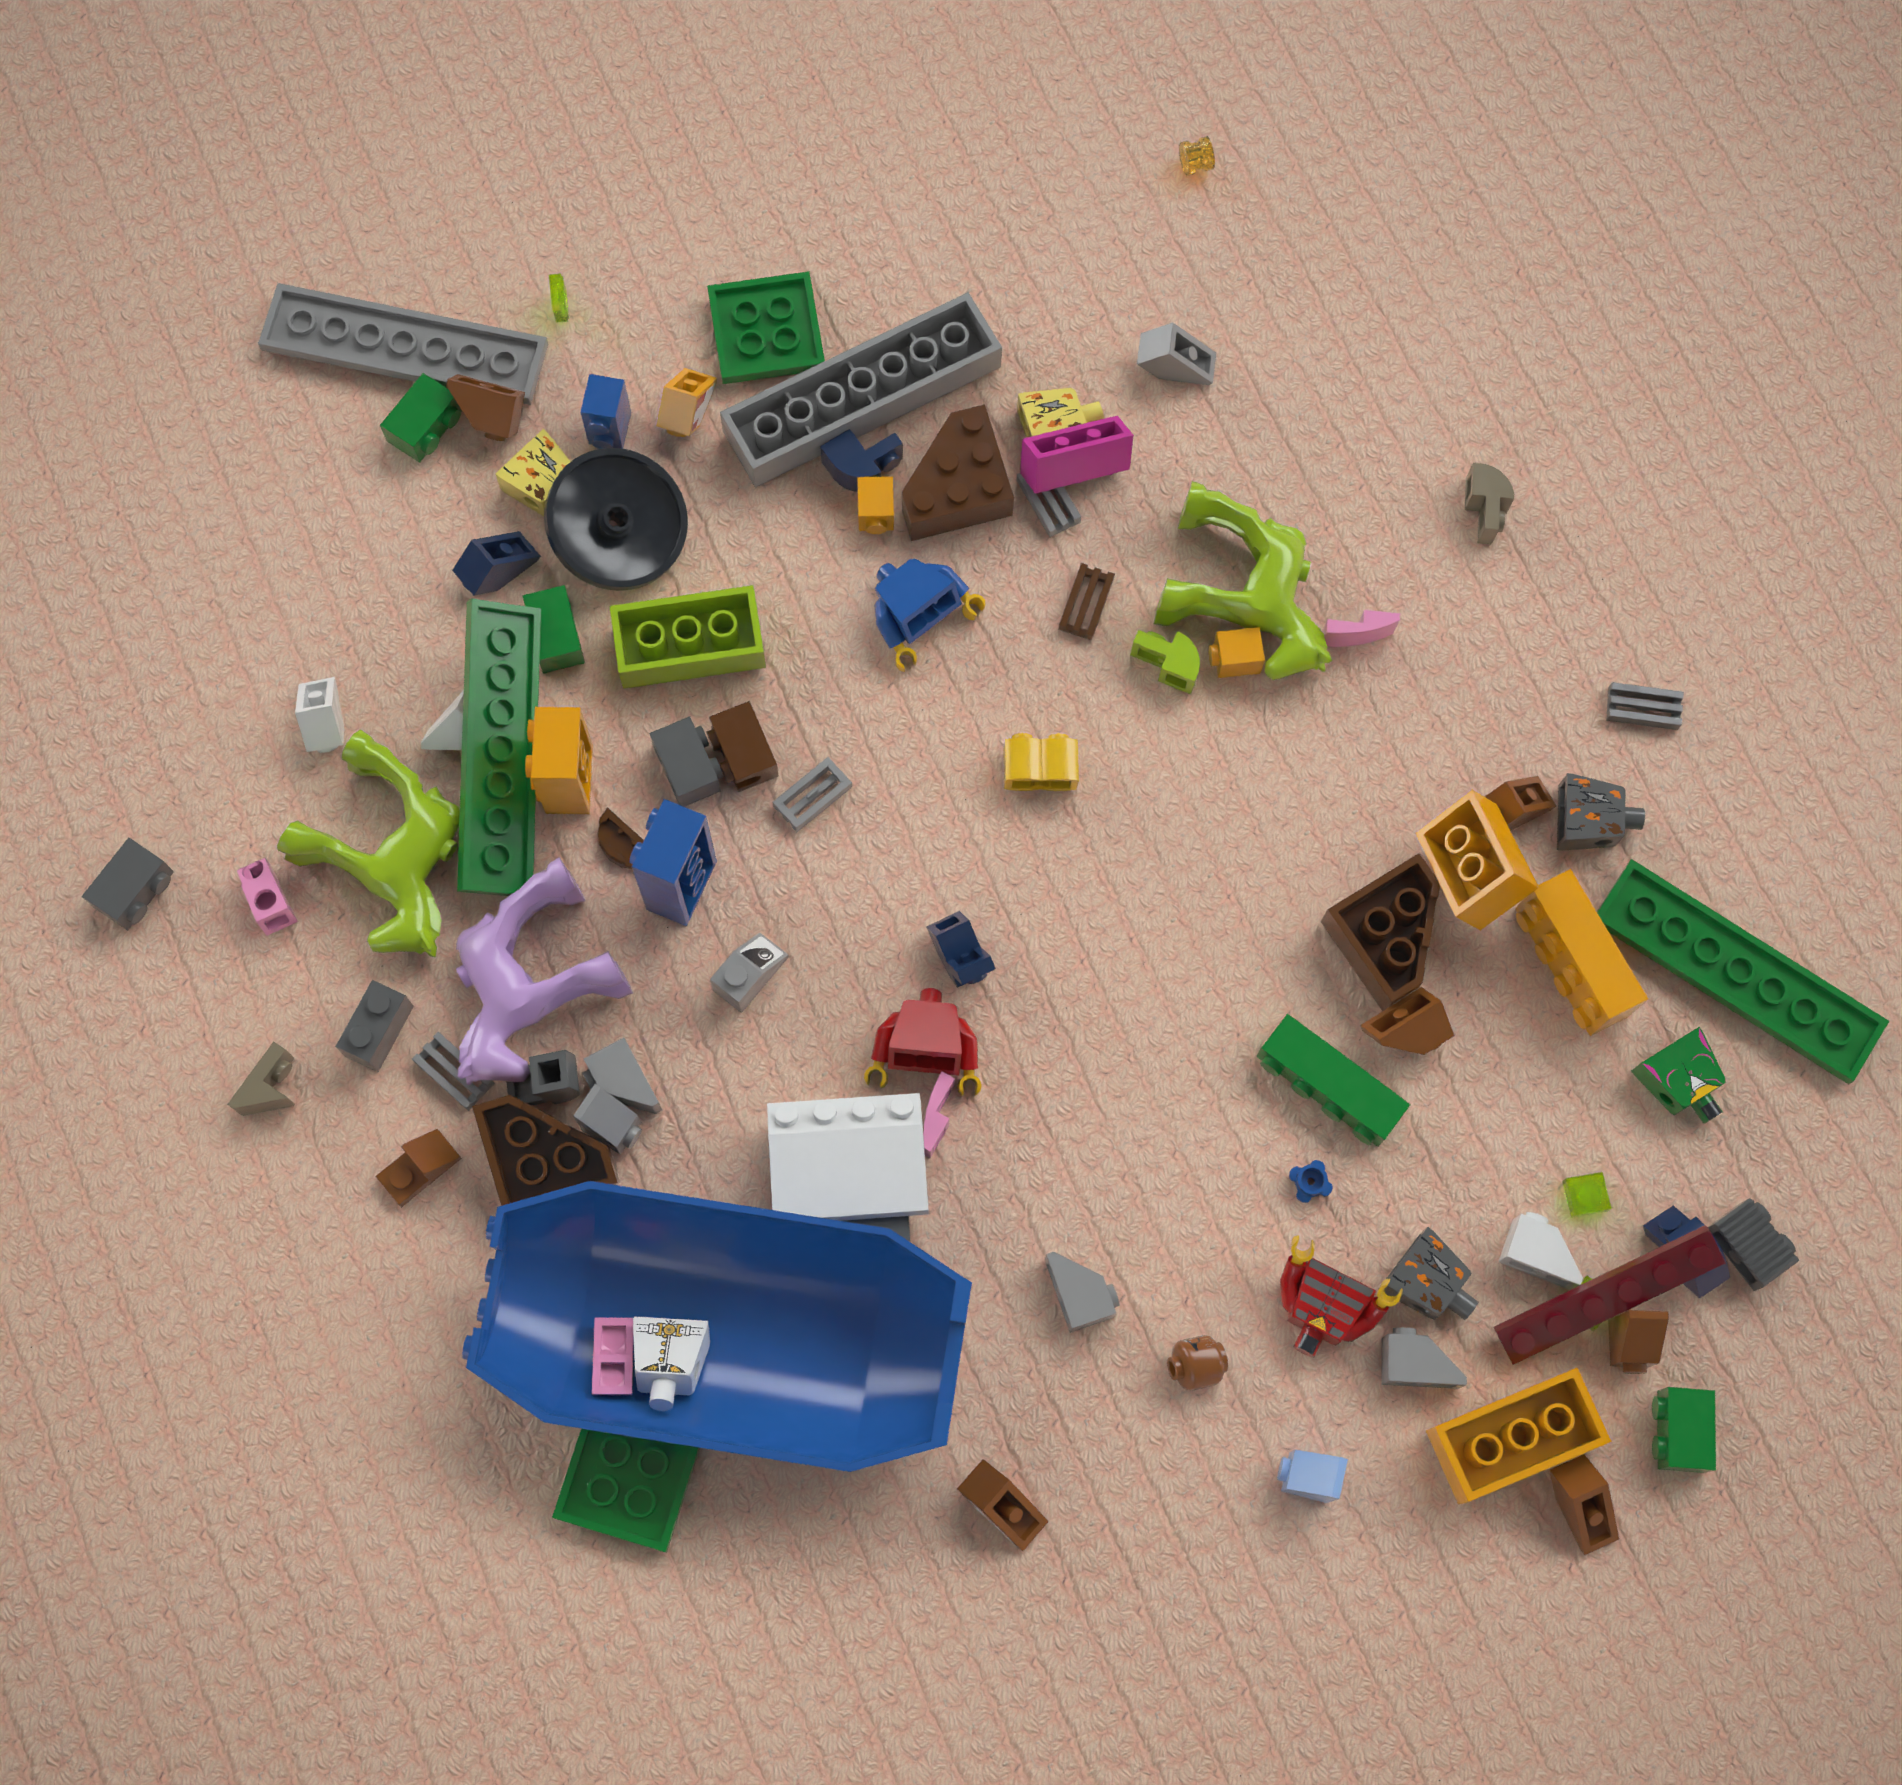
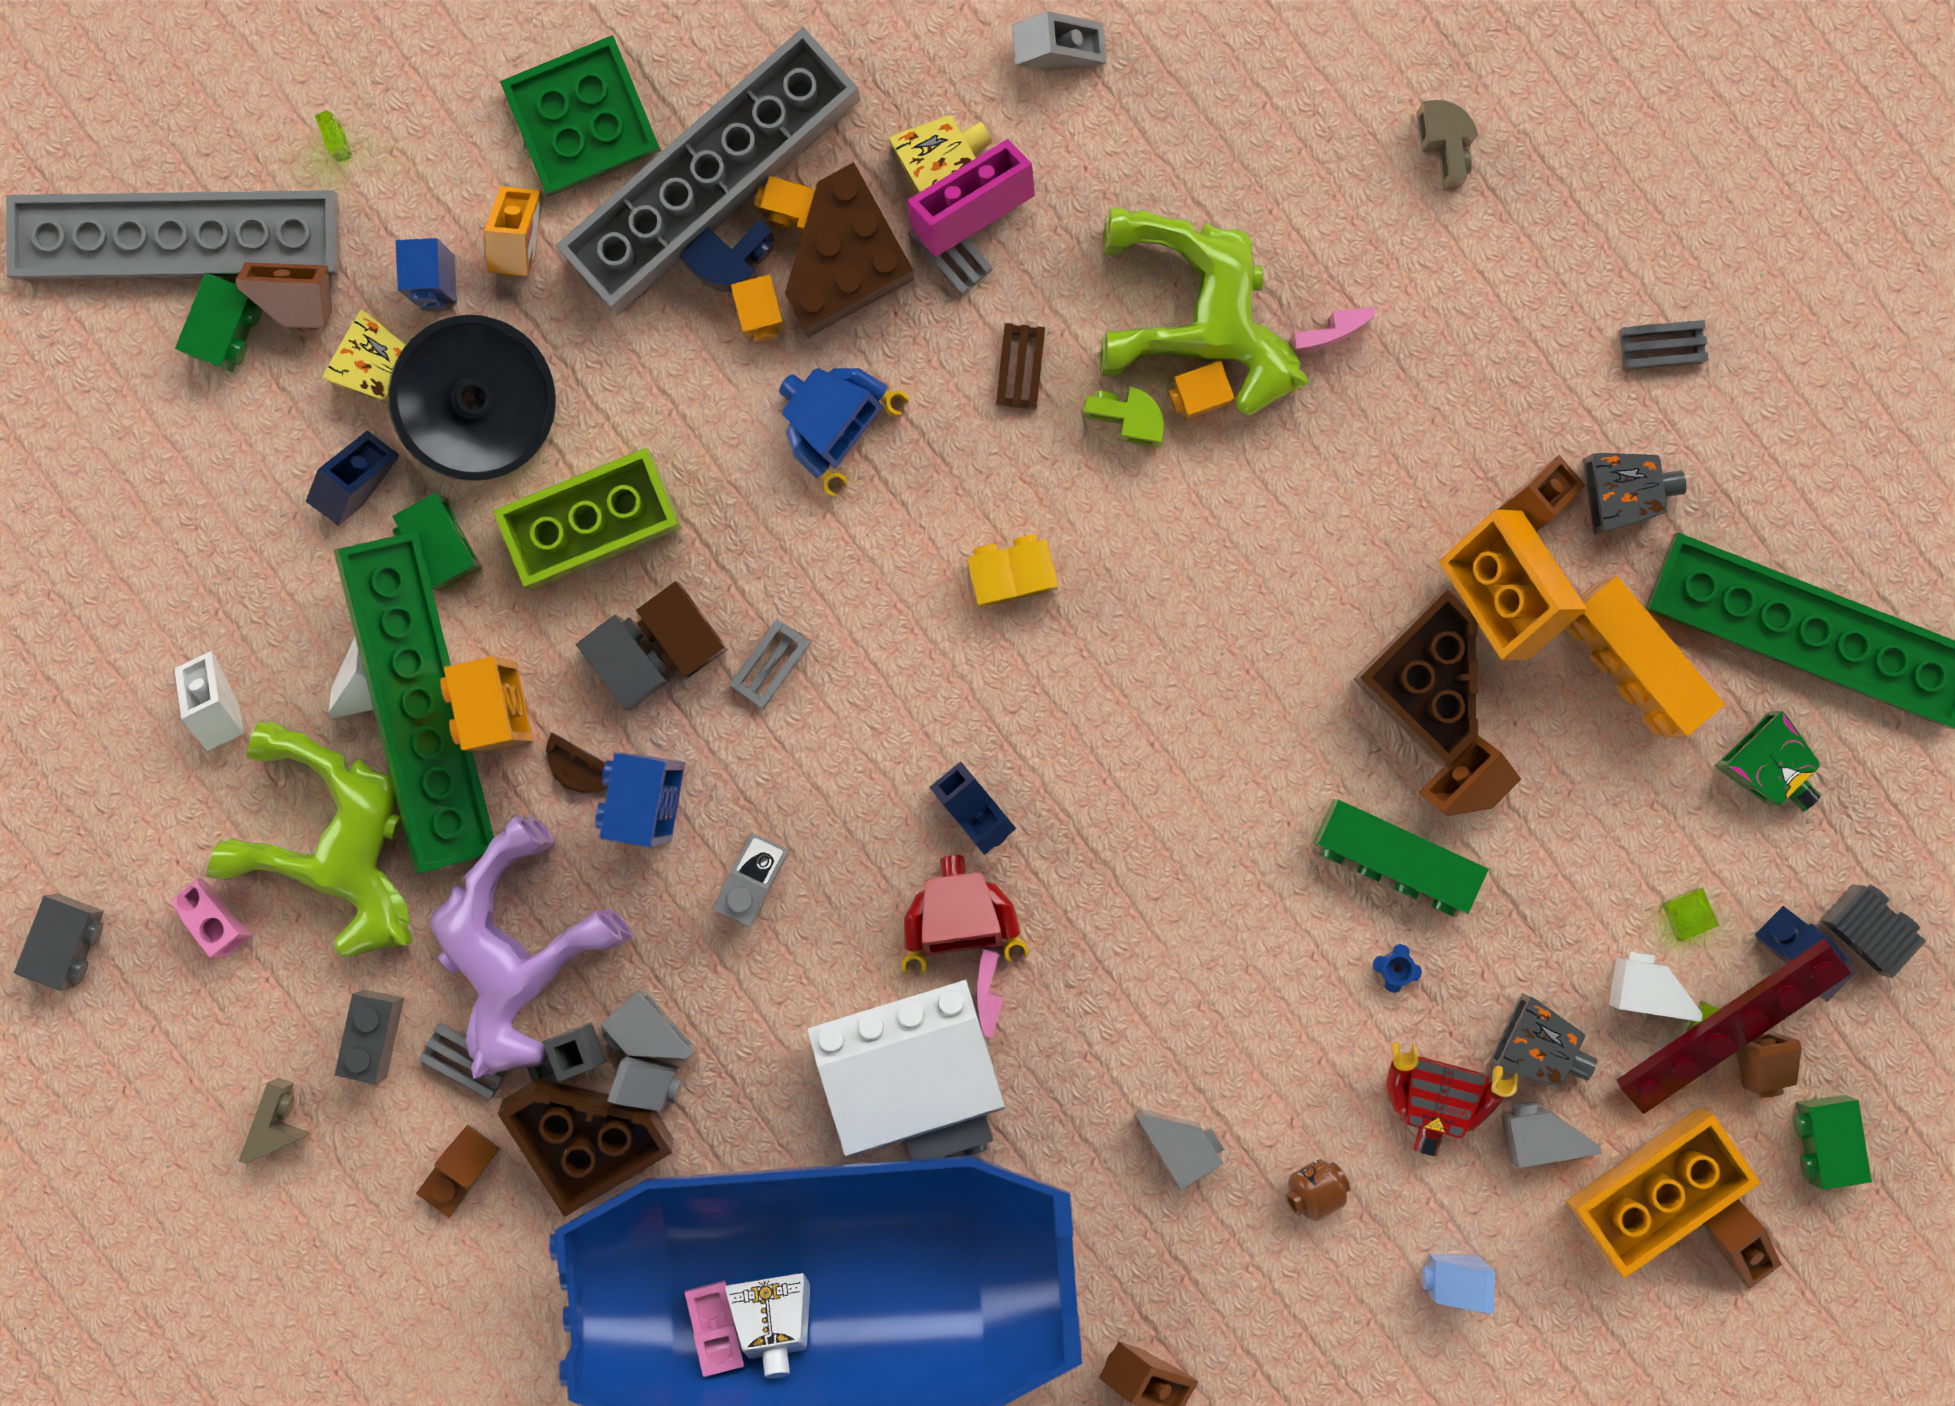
camera: 10 degrees left, 15 degrees up
(917, 427) = (784, 203): none -> light orange brick

